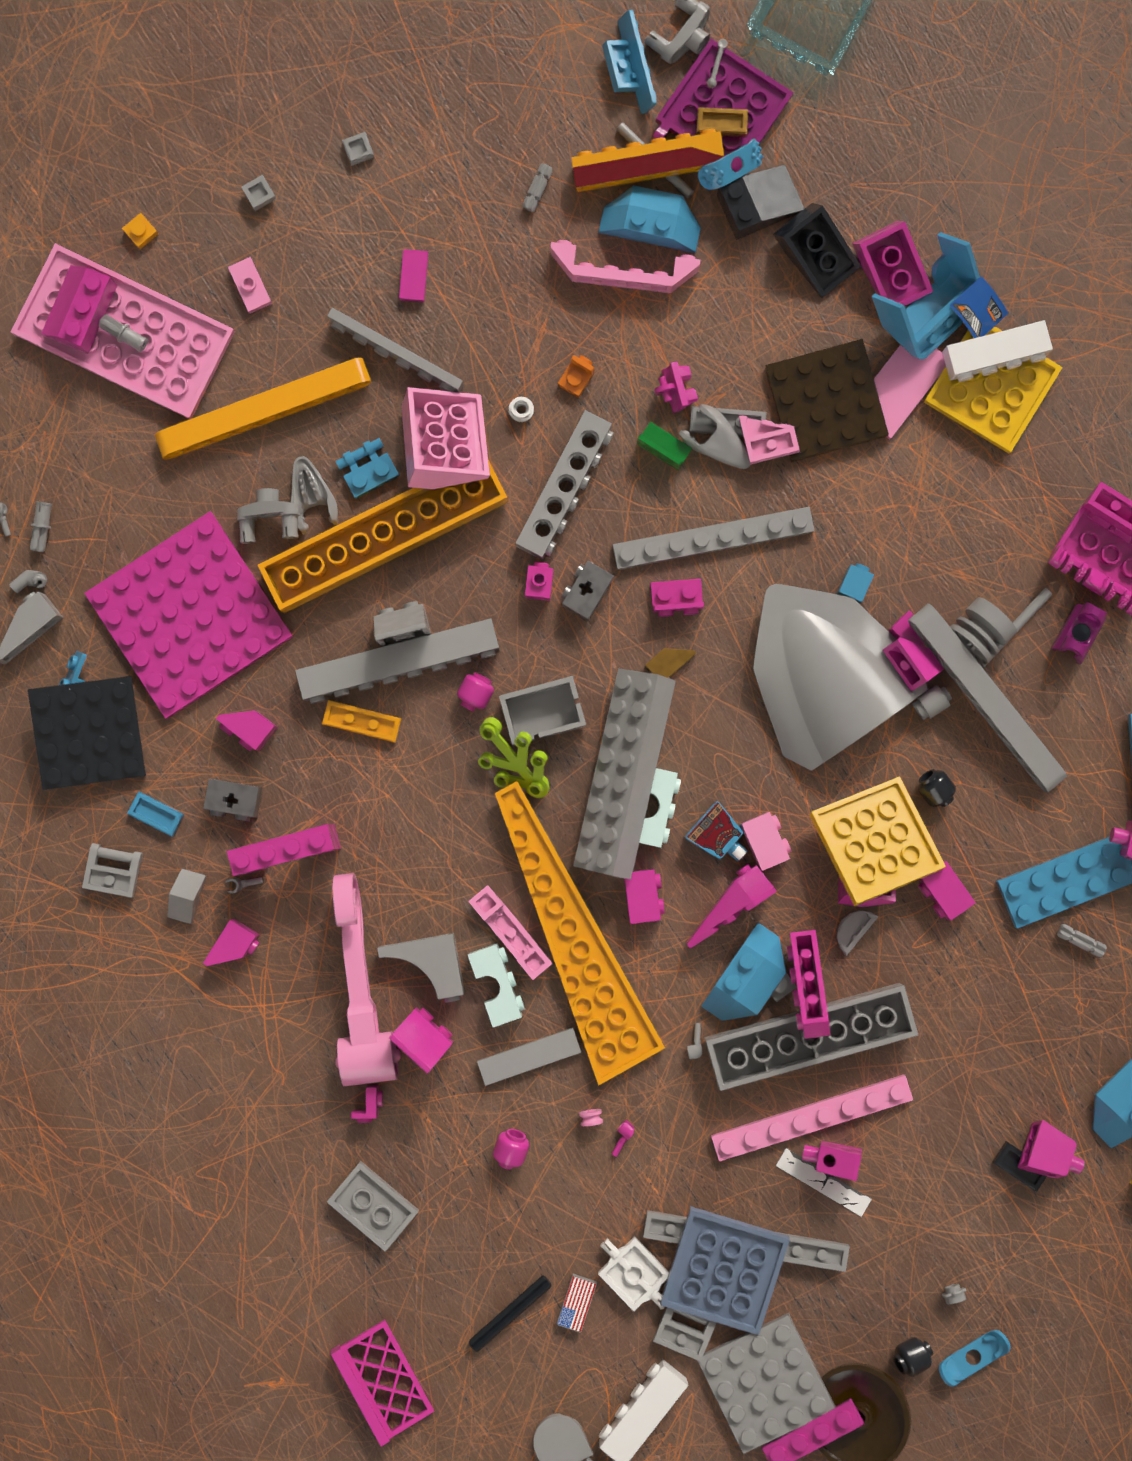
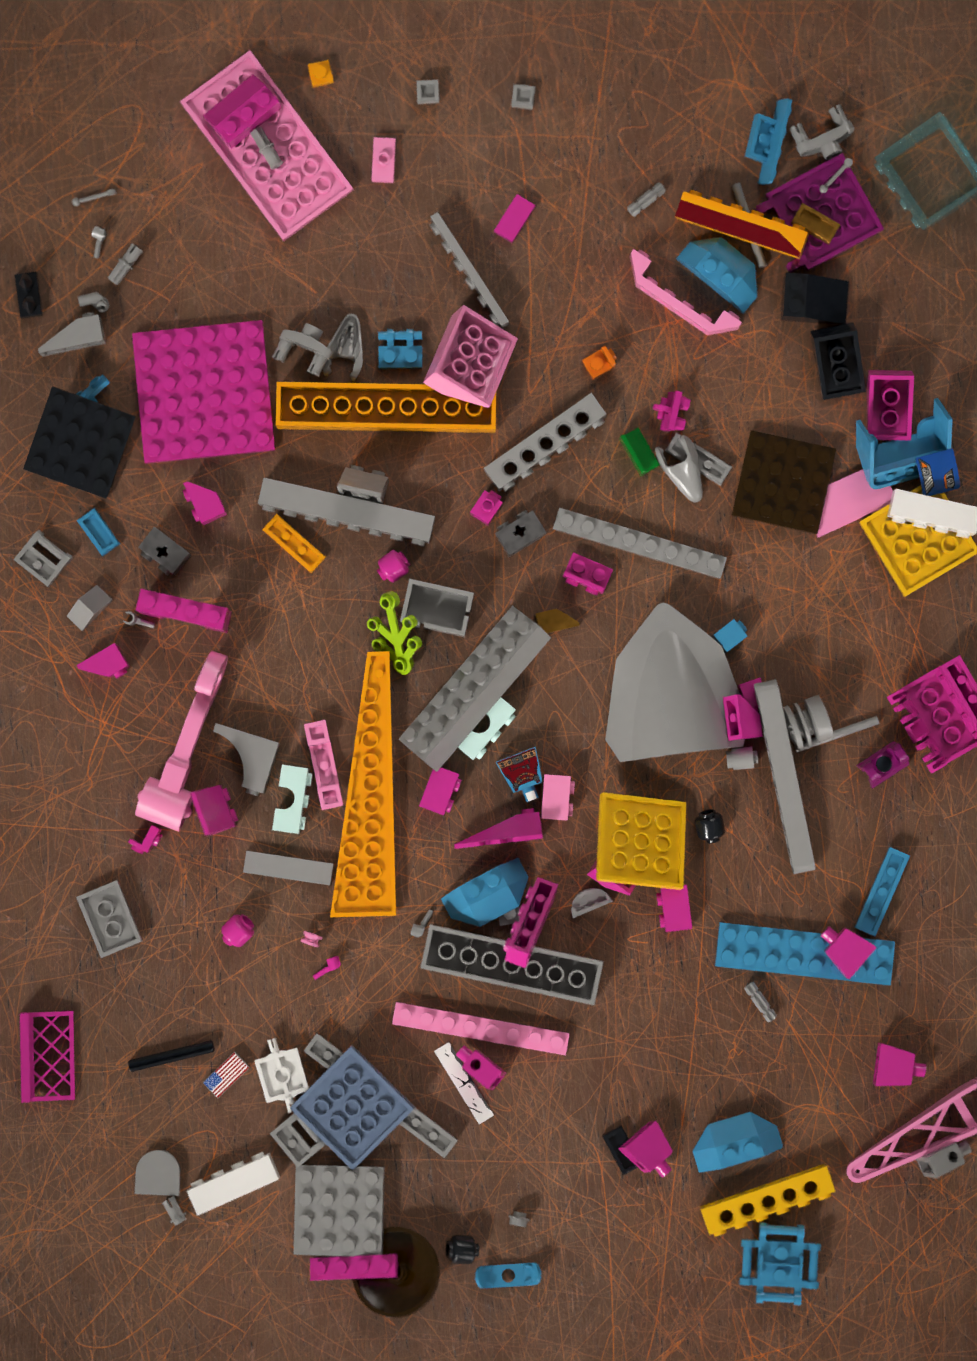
camera: 25 degrees right, 0 degrees up
(262, 408) = (343, 261): light orange beam -> none
(517, 402) = (543, 359): white plate -> none
(720, 172) = (792, 263): dark azure piece -> none
(768, 440) = (720, 489): bright pink wing -> none

